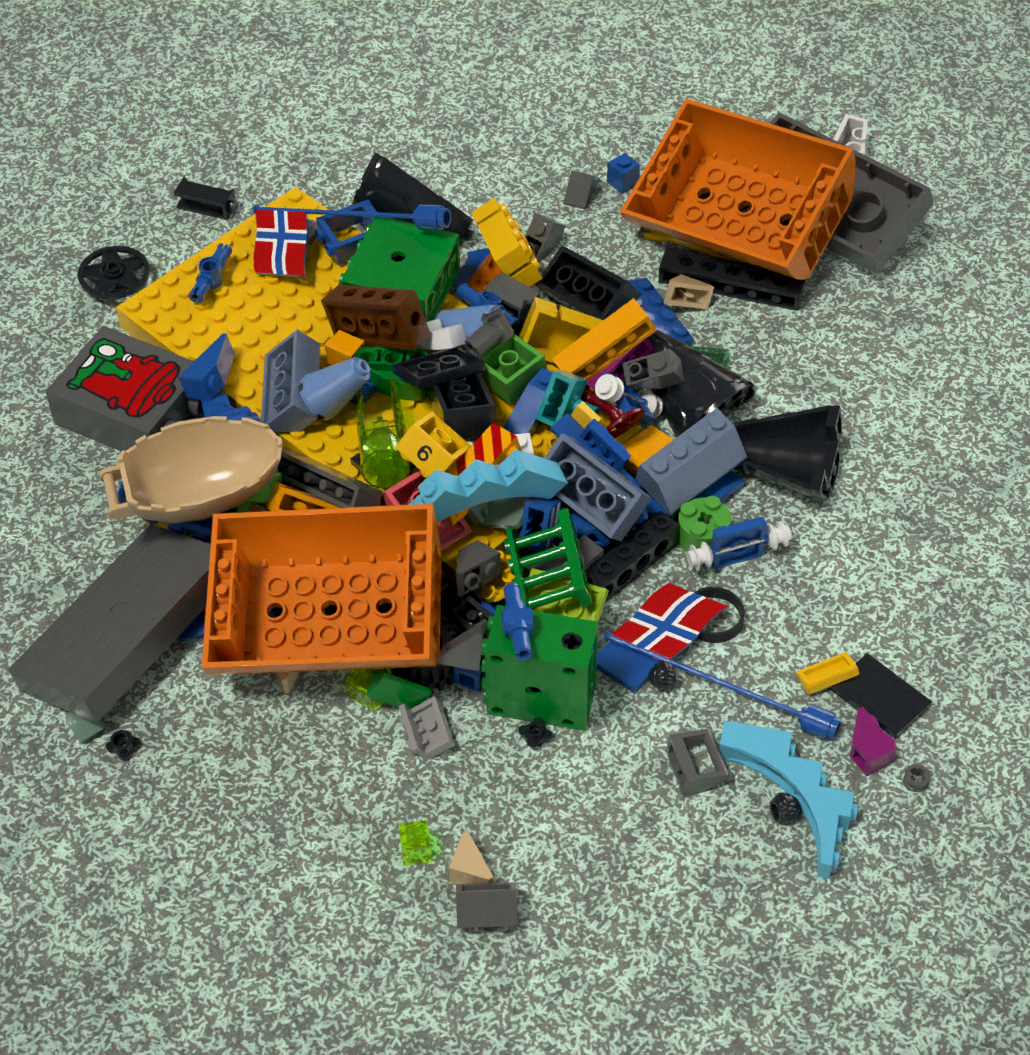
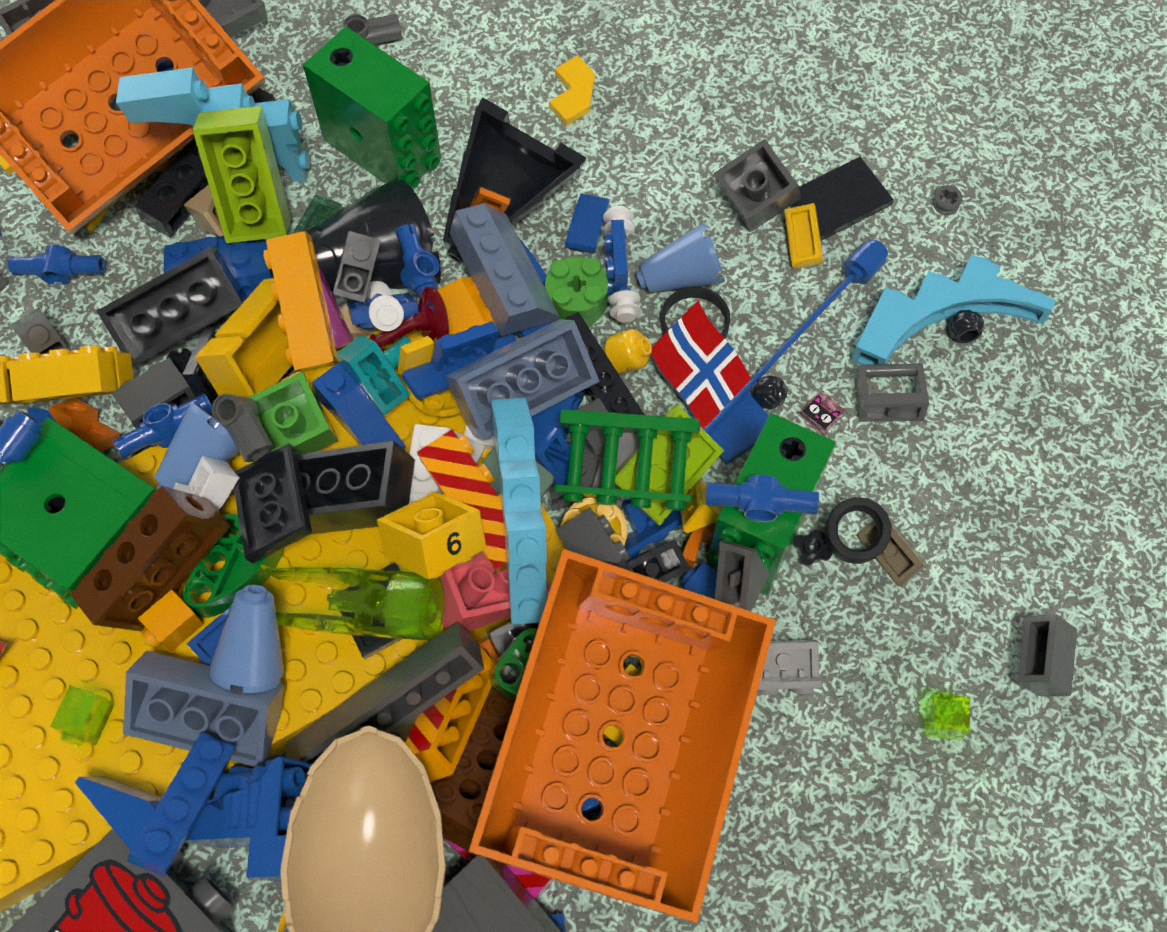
camera: 75 degrees left, 15 degrees up
(219, 382) = (181, 805): none -> blue plate
(268, 327) = (81, 716): none -> clear neon green brick
(468, 864) = (984, 663): tan slope -> none
(548, 732) = (869, 507): none -> black tyre
(554, 791) = (899, 558): none -> dark tan slope
(606, 226) = (56, 265): none -> blue pin
(661, 569) = (628, 351): none -> yellow head
(661, 720) = (822, 413): none -> tile
(677, 404) = (419, 264): none -> blue pin
(701, 284) = (242, 173): none -> lime brick
(745, 258) = (181, 95): none -> medium azure arch
(754, 443) = (490, 198): none -> orange slope
(762, 592) = (682, 264): none -> medium blue cone
(792, 518) = (587, 223): none -> blue slope
(797, 346) = (373, 108): none -> green gear
(856, 623) = (757, 185): none -> dark grey brick
(870, 745) = (902, 226): magenta slope -> none
(895, 338) = (375, 29): none -> dark grey piece
(920, 487) = (577, 99): none -> yellow tile

